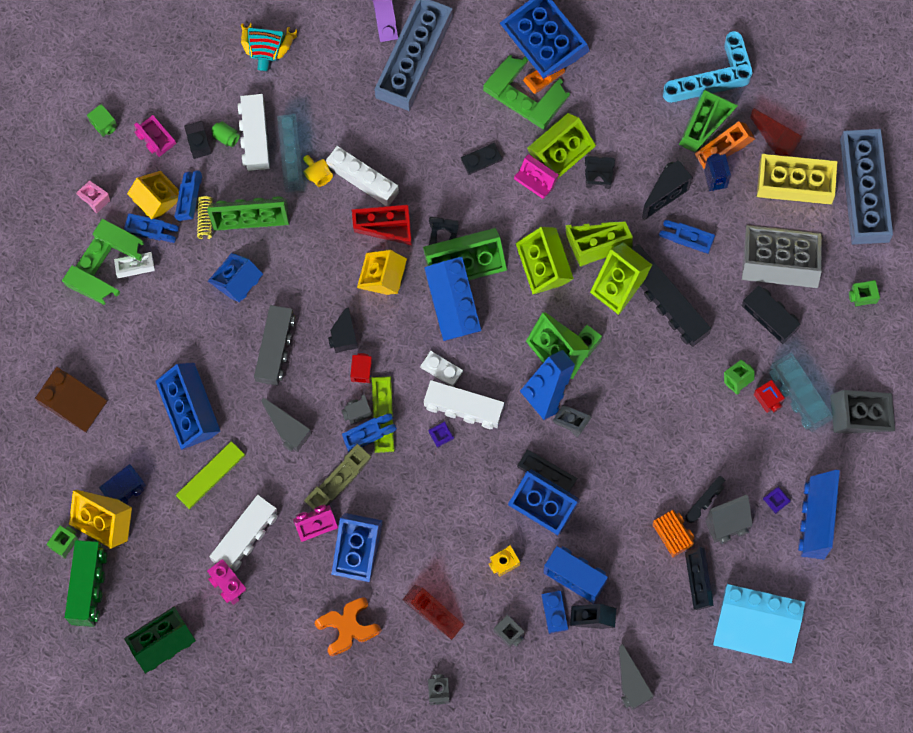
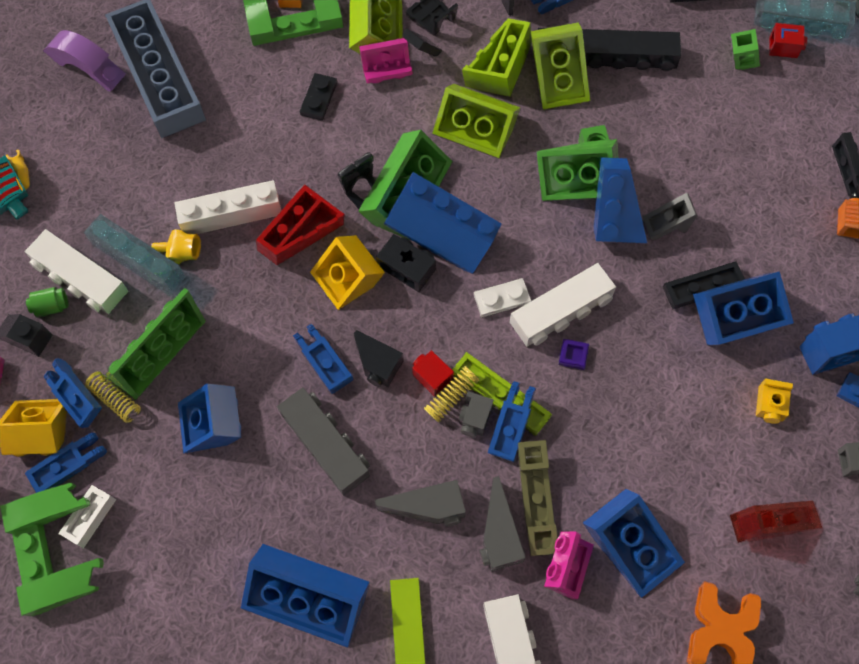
camera: 50 degrees left, 5 degrees down
(301, 476) = (501, 539): none -> dark grey slope
(319, 306) = (324, 361): none -> blue hinge
(373, 388) = (470, 375): none -> light yellow piece
(412, 289) = (414, 273): none -> black brick
(566, 186) = (421, 42): none -> black tile

